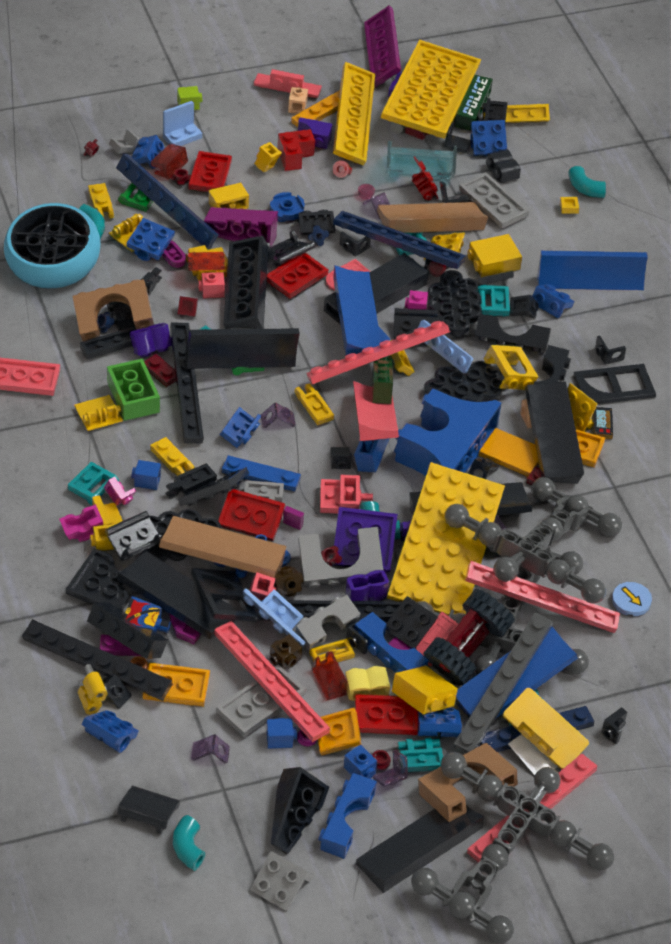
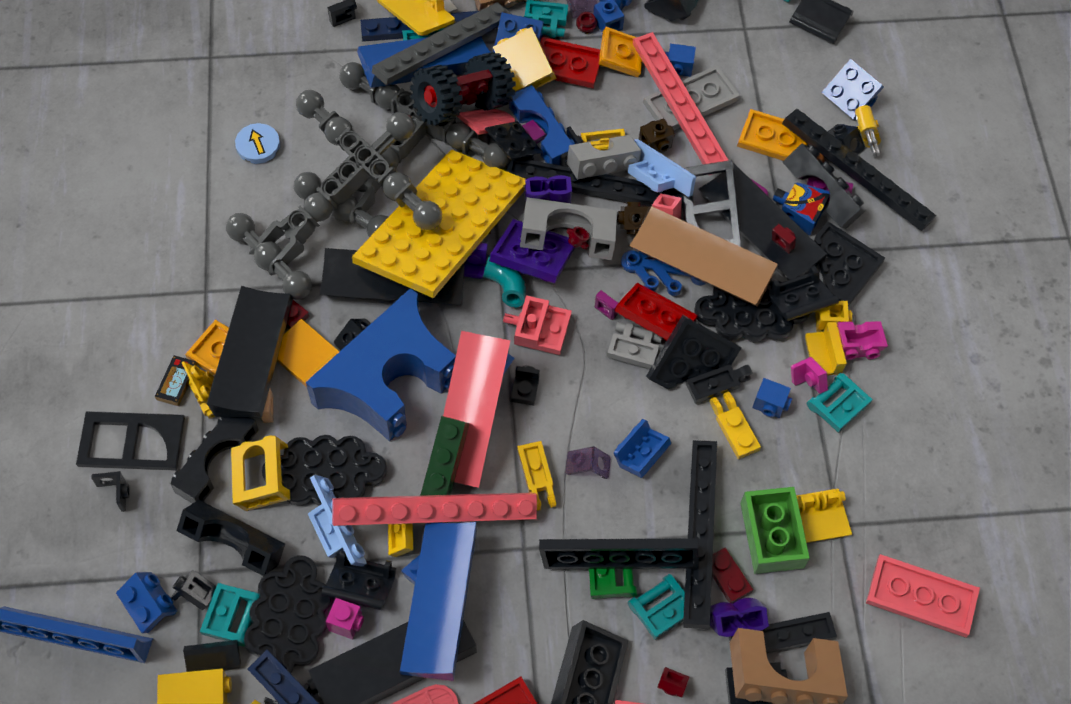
camera: 165 degrees left, 15 degrees up
(105, 322) = (796, 671): dark blue plate -> none
(157, 570) = (784, 238): none -> dark red plate
(210, 746) = (754, 56): clear purple bracket -> none
(262, 472) = (629, 383): blue plate -> none
(330, 676) = (613, 109): clear red hinge -> none
(367, 682) = (578, 95): light yellow brick -> none
(544, 598) = (415, 147): coral plate -> none

